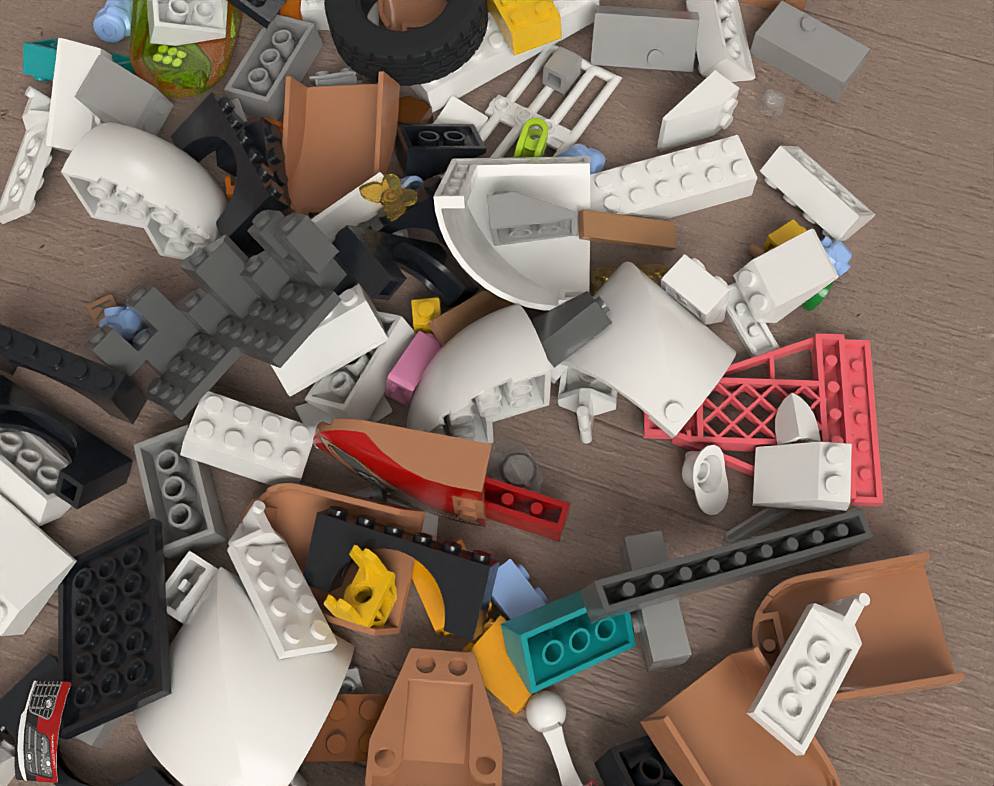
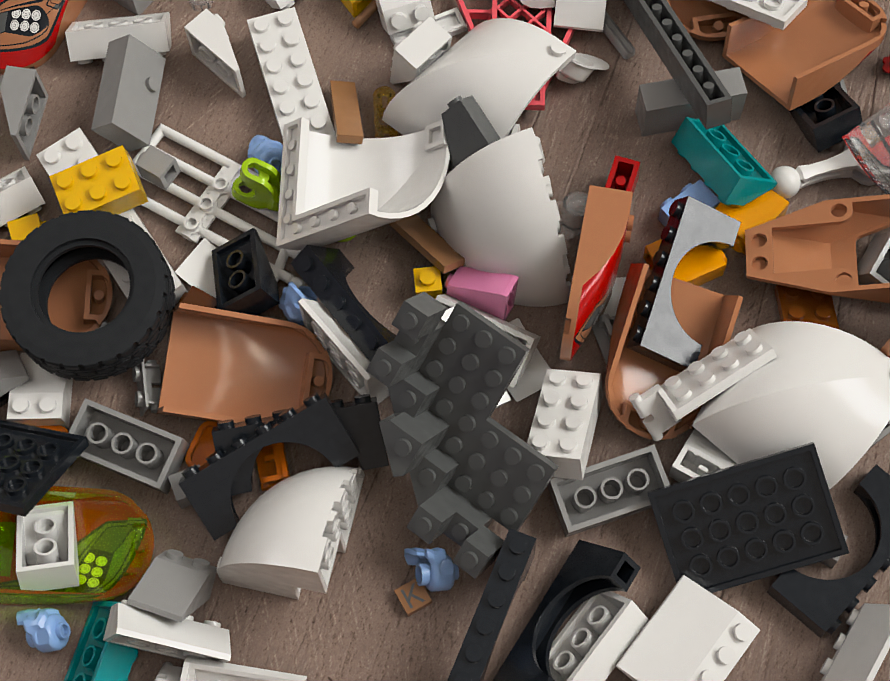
camera: 90 degrees left, 0 degrees up
(39, 731) = (841, 576): sticker -> none
(371, 581) = (693, 300): yellow piece -> none
(376, 262) = (398, 276): black arch -> none
(390, 195) = (328, 288): clear yellow animal -> none
(526, 219) = (351, 171): light grey slope -> none

